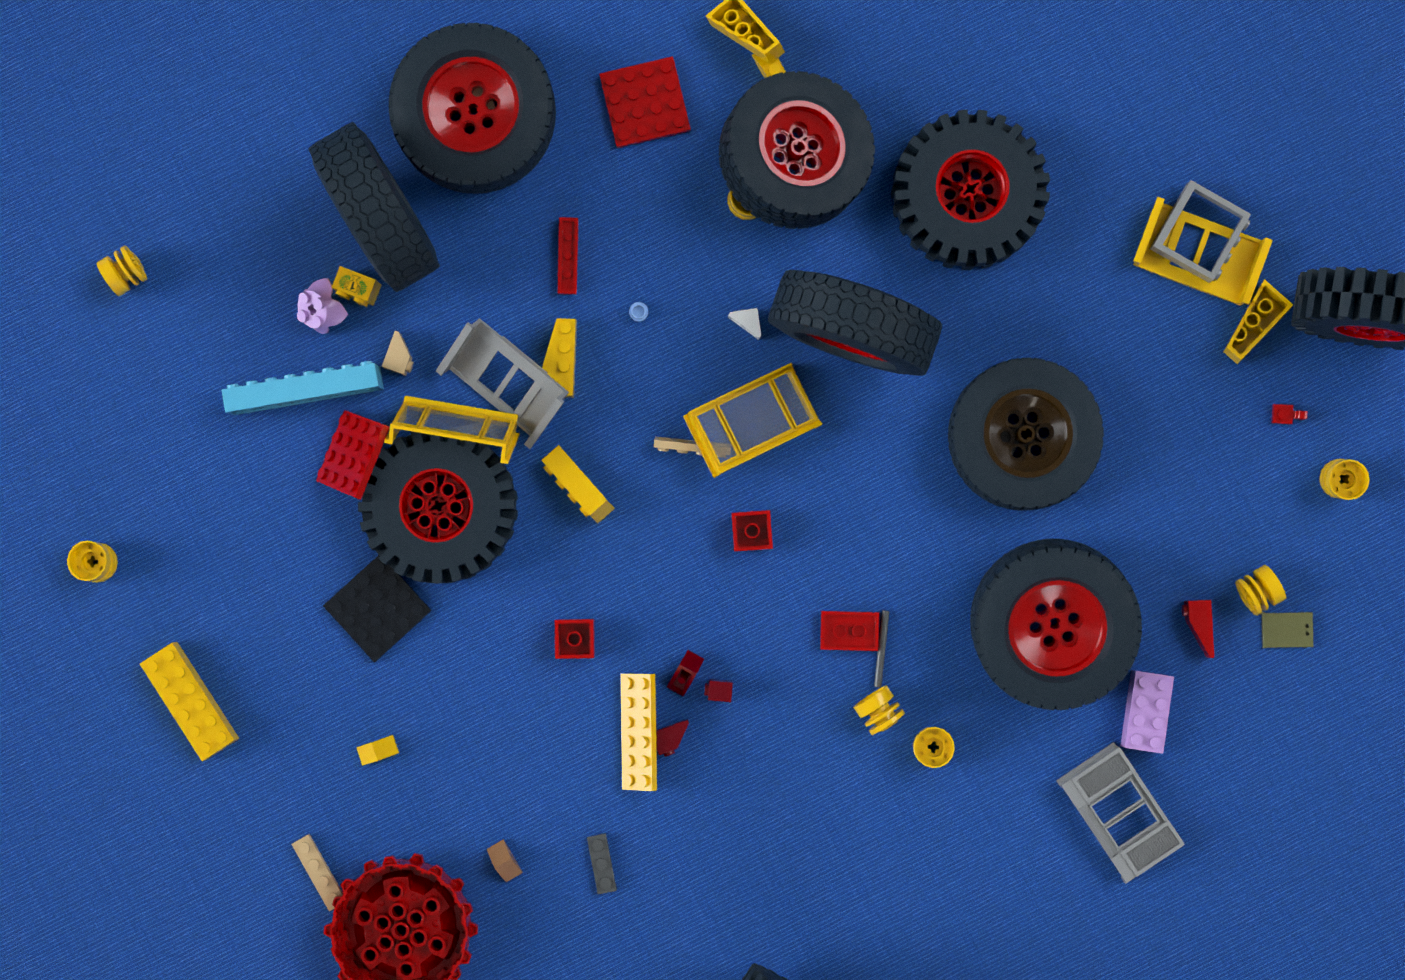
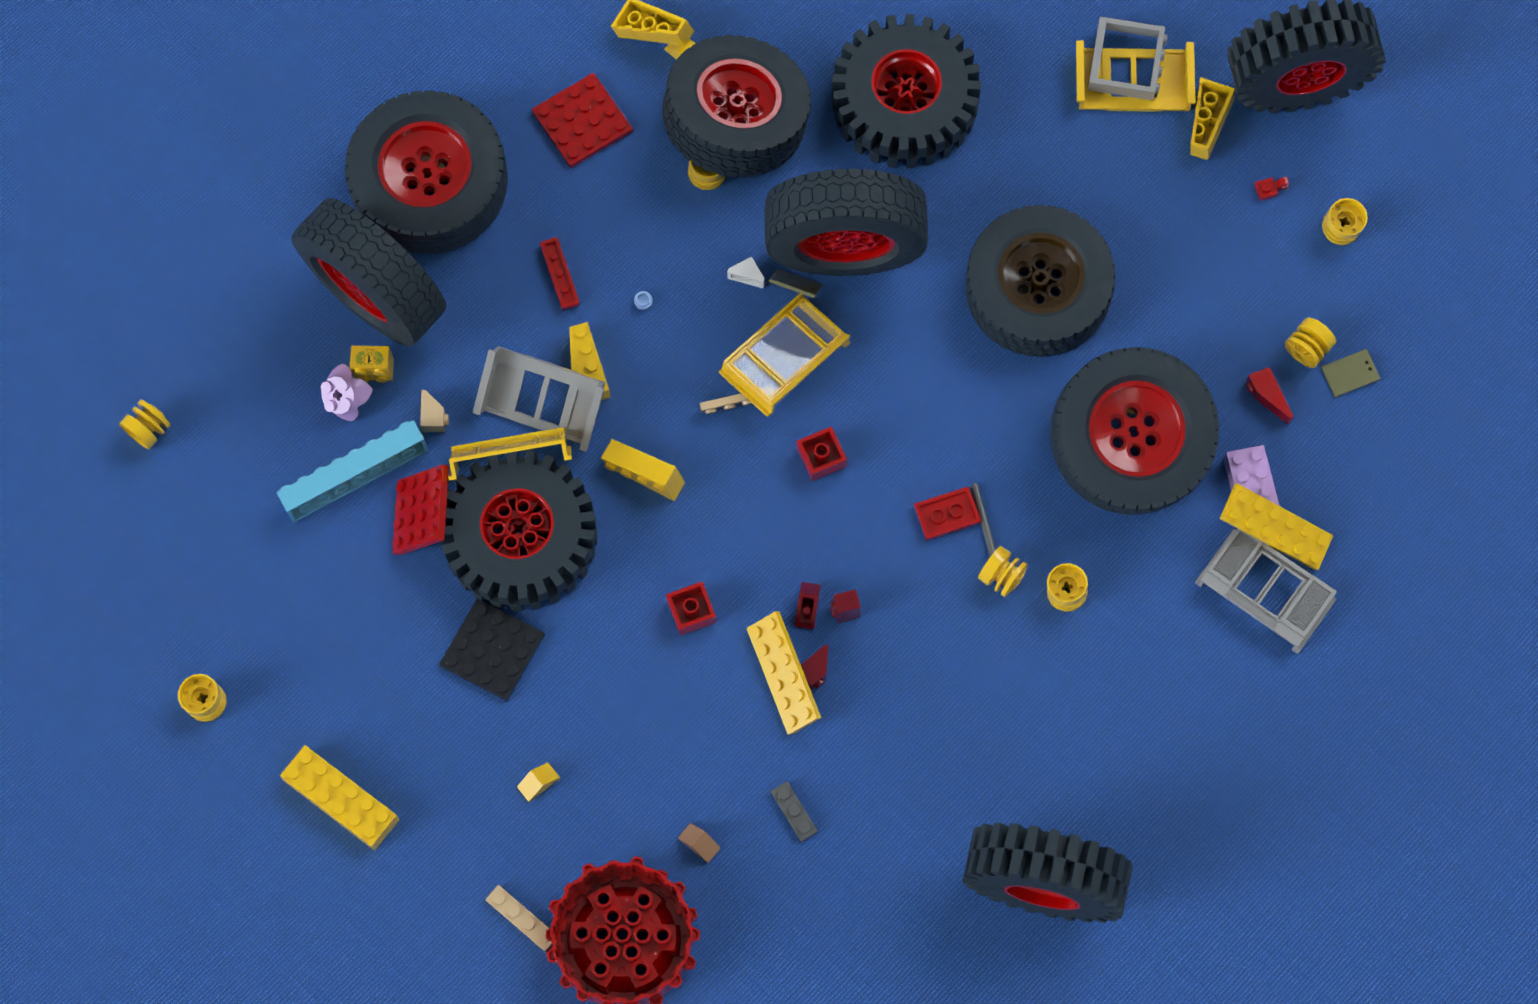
camera: 20 degrees left, 15 degrees down
(790, 350) = (795, 283): none -> olive container
(1153, 762) = (1276, 526): none -> yellow plate

